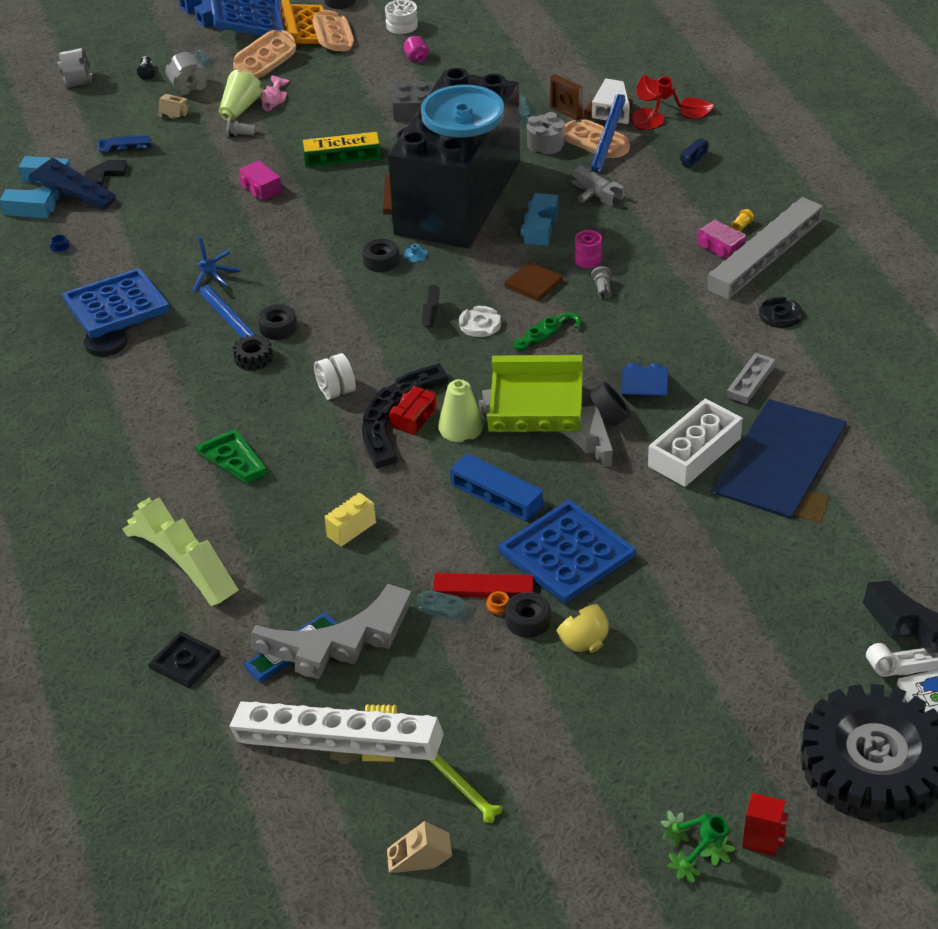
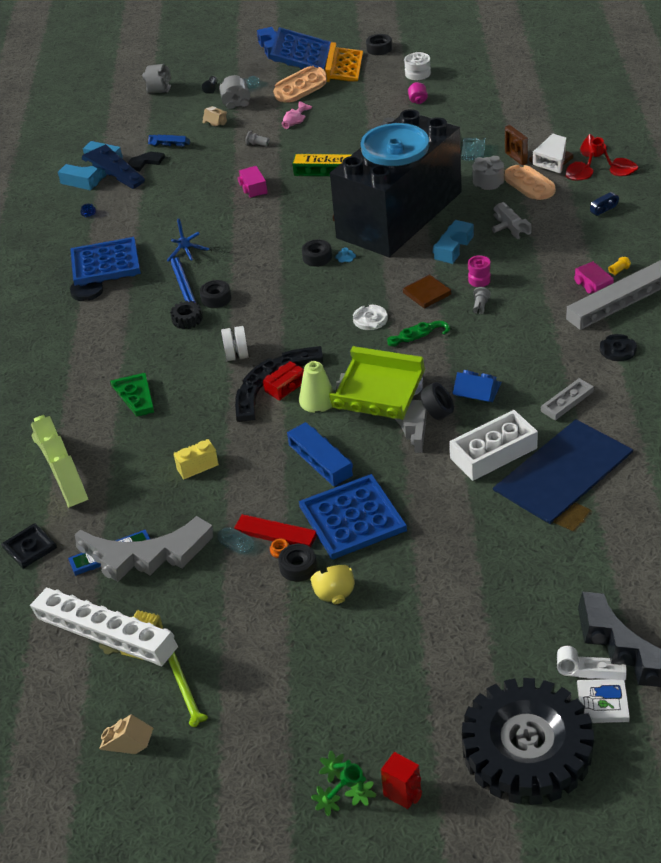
camera: 20 degrees right, 0 degrees up
(239, 94) = (266, 113): yellowish green cone -> none
(333, 30) = (361, 71): light nougat tile -> none
(430, 309) = (332, 304): black tile -> none
(608, 133) = (537, 177): blue axle -> none

